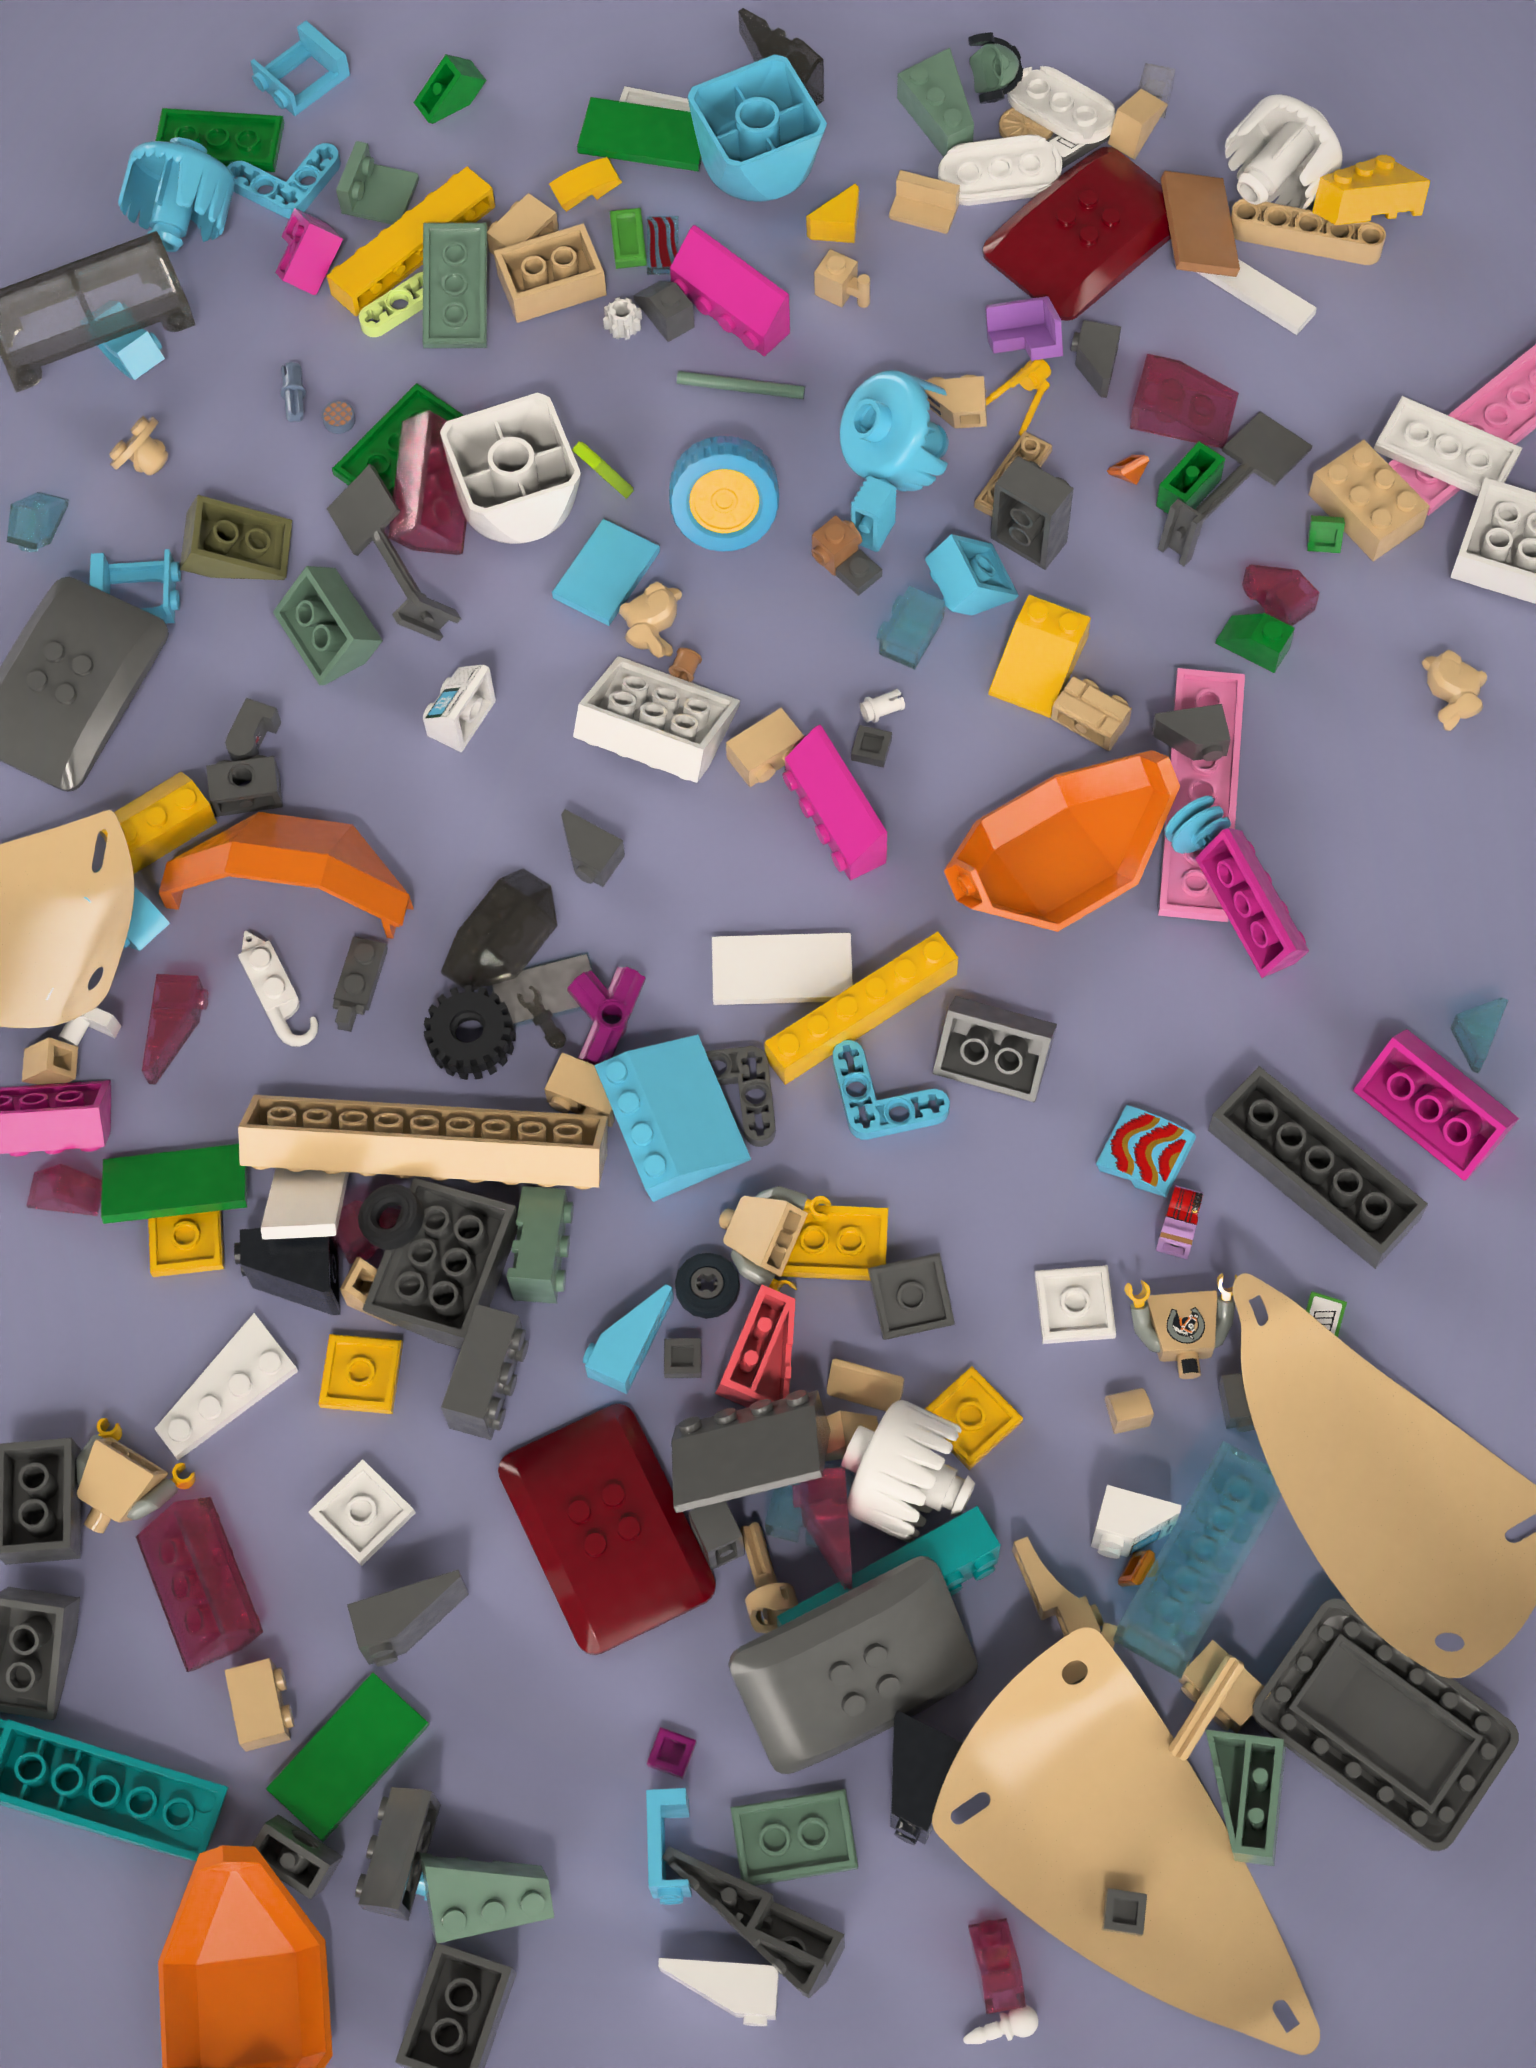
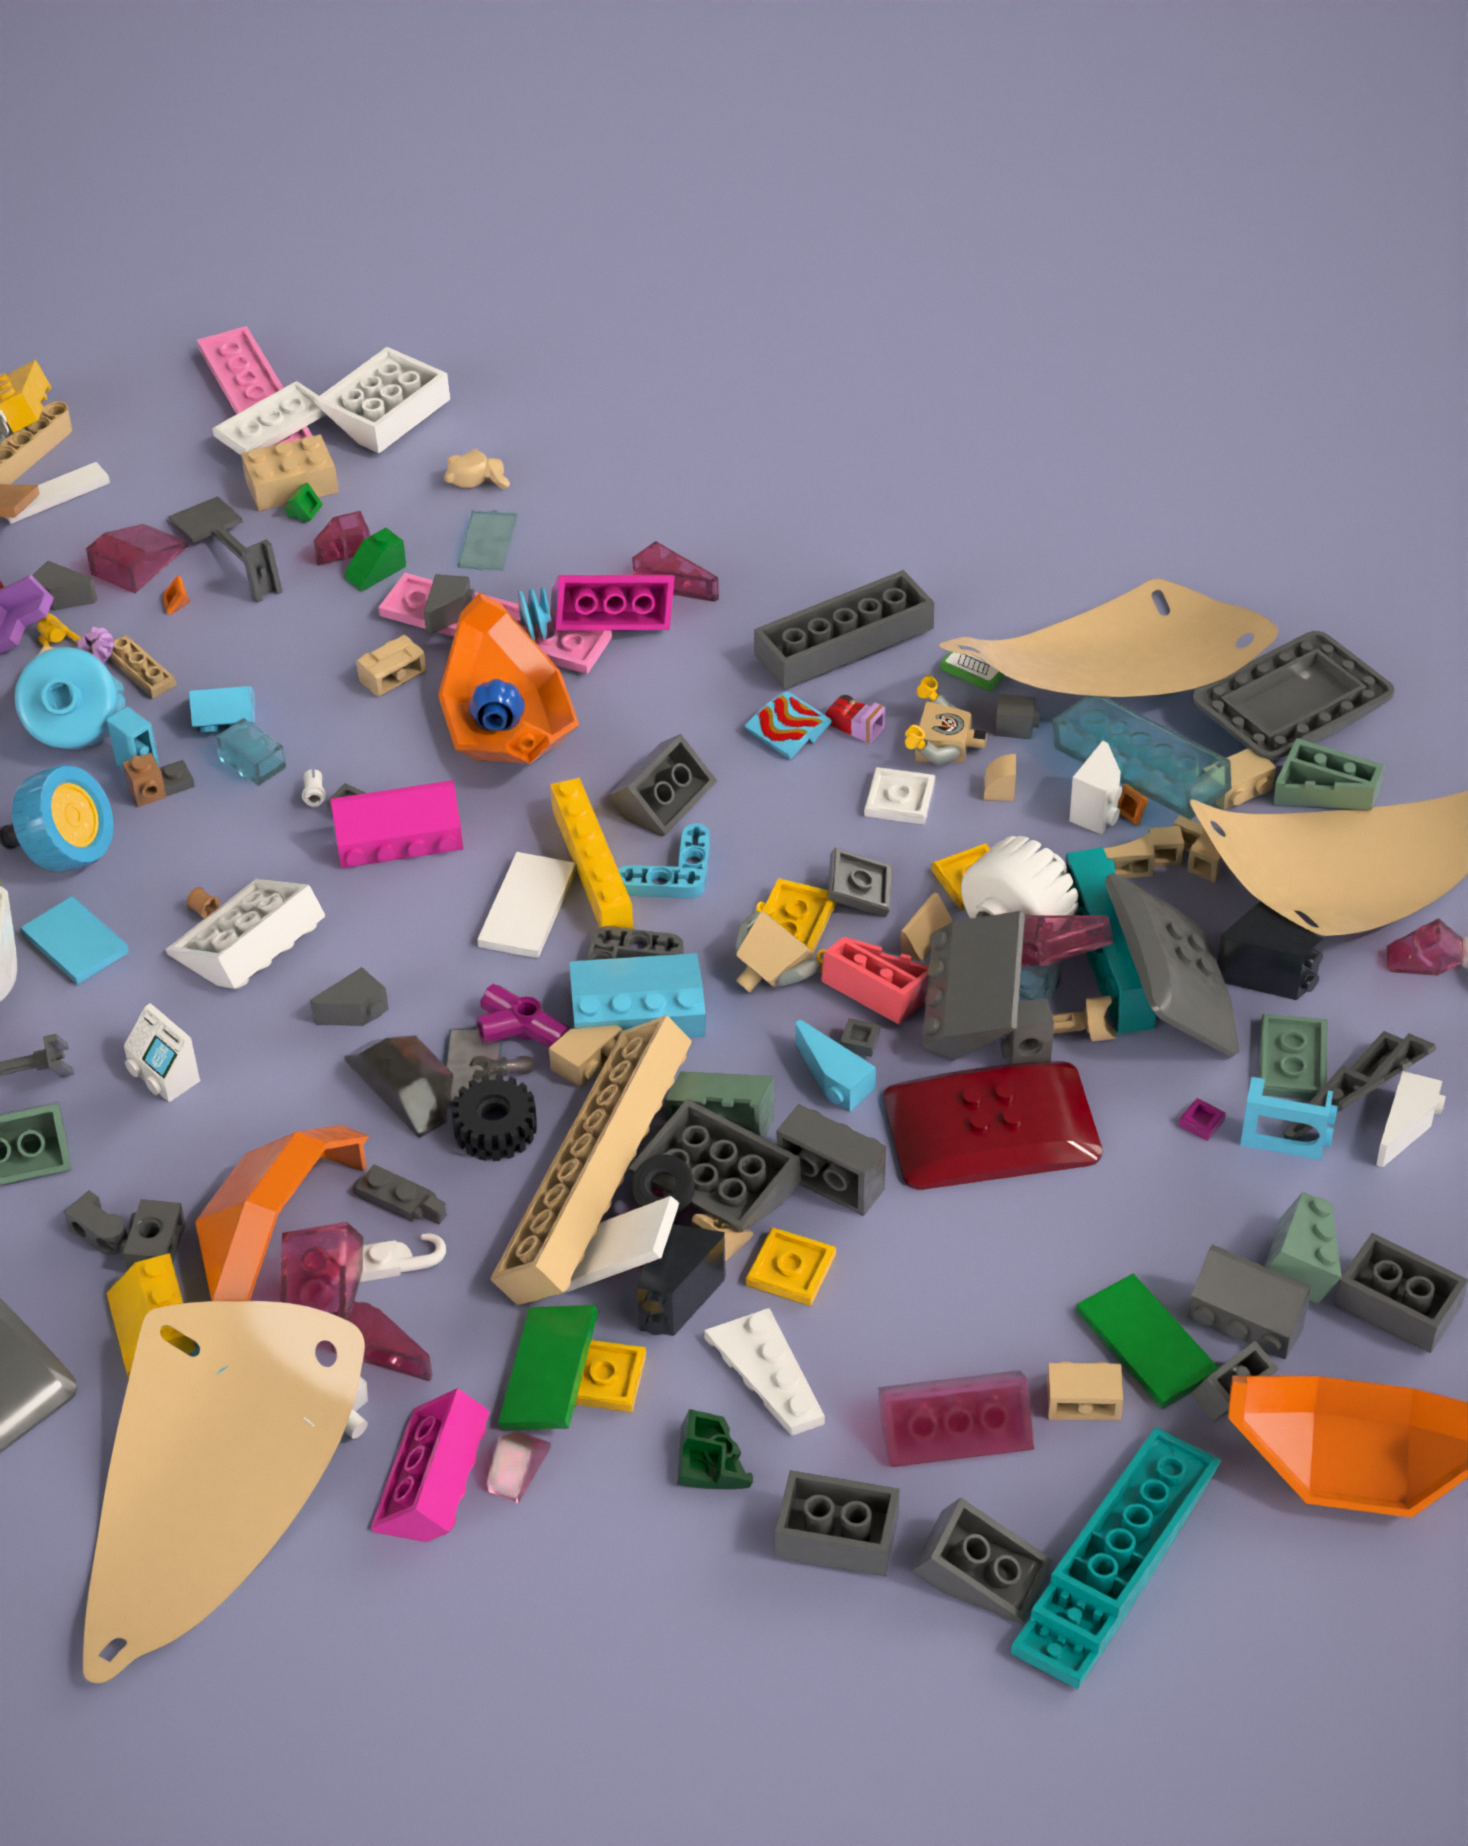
camera: 75 degrees left, 20 degrees down
(50, 1062) = (375, 1449): tan brick -> none
(109, 1362) = (709, 1454): none -> dark green slope
(120, 1481) = (840, 1450): tan torso -> none
(210, 943) = (322, 1267): none -> clear pink slope
(362, 1512) = (926, 1284): white plate -> none
(401, 1617) = (1042, 1261): dark grey slope -> none
(649, 616) = (141, 917): tan animal -> none
(707, 1303) = (802, 998): black bush -> none
(763, 747) = (315, 863): tan brick -> none
(1007, 425) = (101, 640): none -> lavender gear
(1031, 512) = (197, 640): dark grey brick -> none
(1040, 655) = (320, 682): yellow slope -> none
(1060, 837) = (491, 704): none -> blue plant
(1124, 1912) = (1400, 869): dark grey plate -> none
(1191, 478) = (216, 558): green brick -> none
(1206, 1707) = (1258, 778): tan axle -> none
(1348, 740) = (487, 540): none -> clear light blue piece
(1352, 946) = (689, 578): none -> clear pink slope
(1435, 1104) = (817, 562): dark pink slope -> none
(1476, 1030) = (771, 527): clear light blue slope -> none

